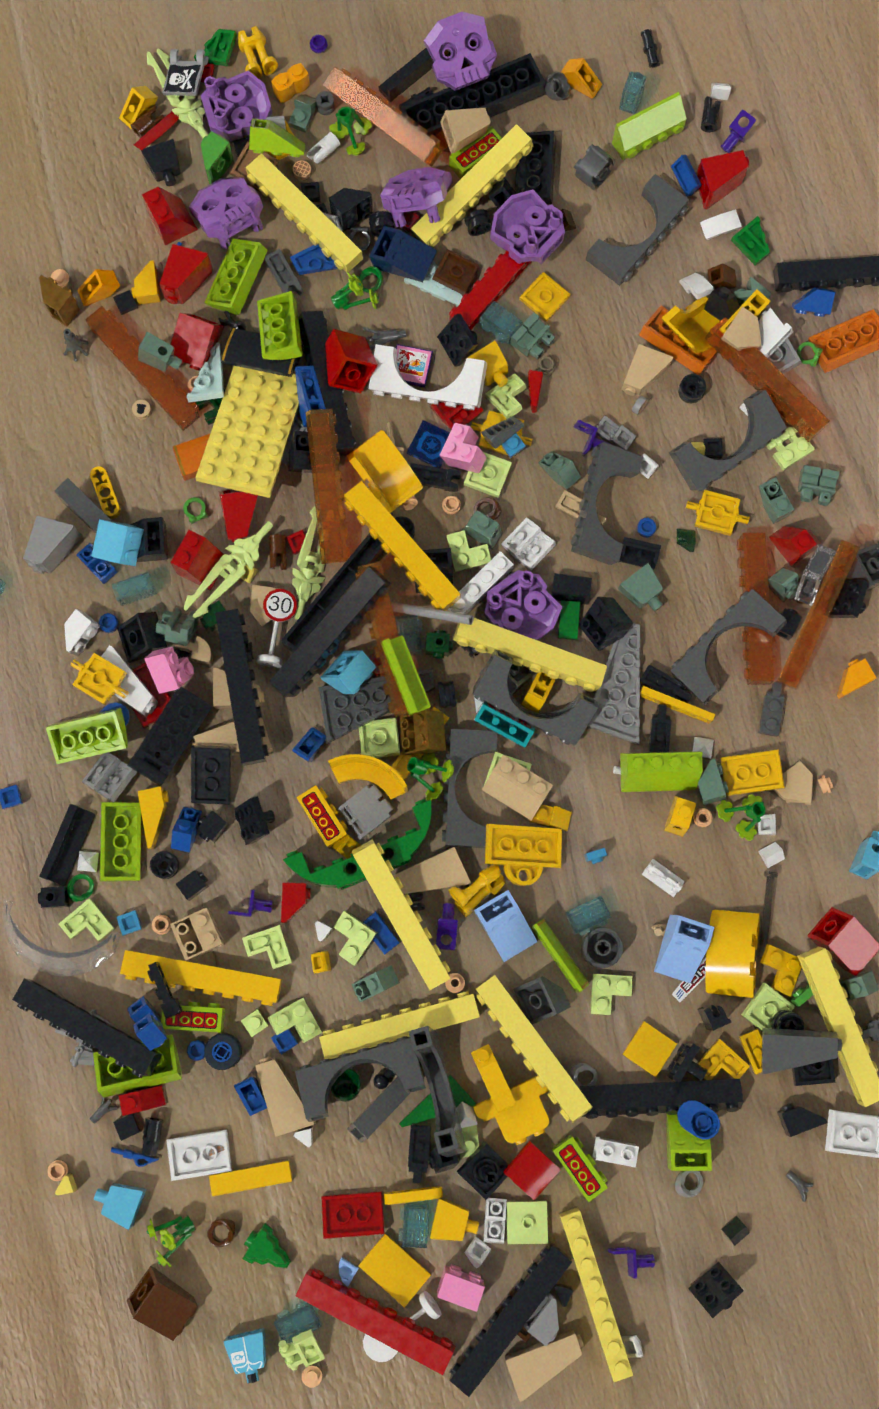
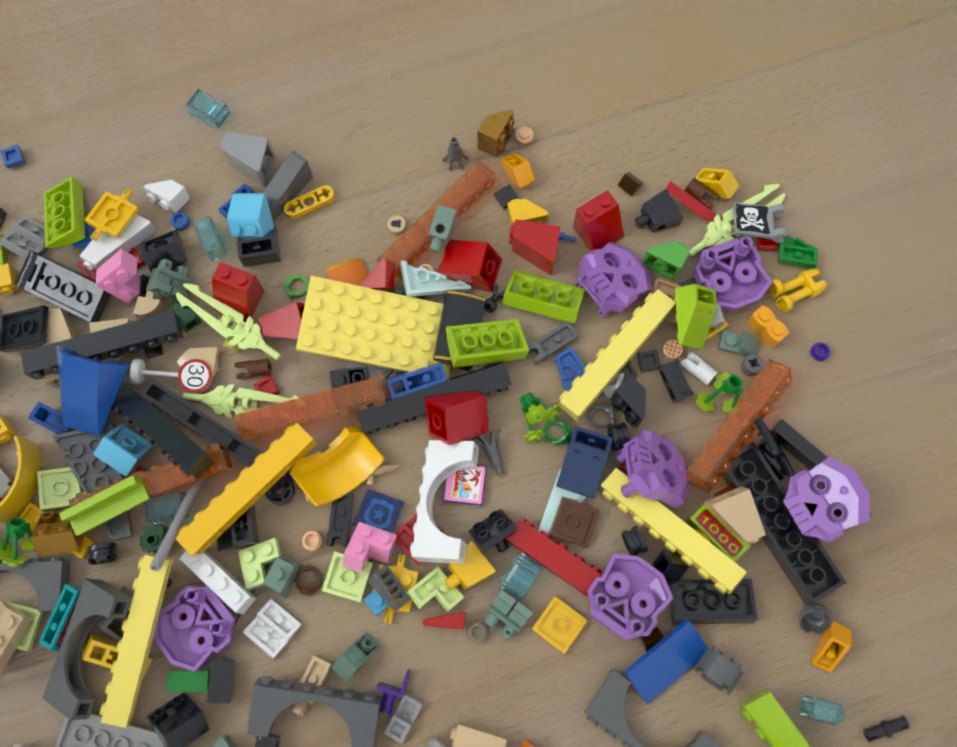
camera: 90 degrees right, 5 degrees down
(127, 186) = (630, 183): none -> dark brown slope
(202, 418) = (381, 277): none -> slope
(287, 697) = (87, 389): none -> blue wedge
(334, 171) = (675, 381): none -> black hinge
(403, 92) = (773, 446): none -> black plate
(583, 209) = (666, 661): none -> blue tile

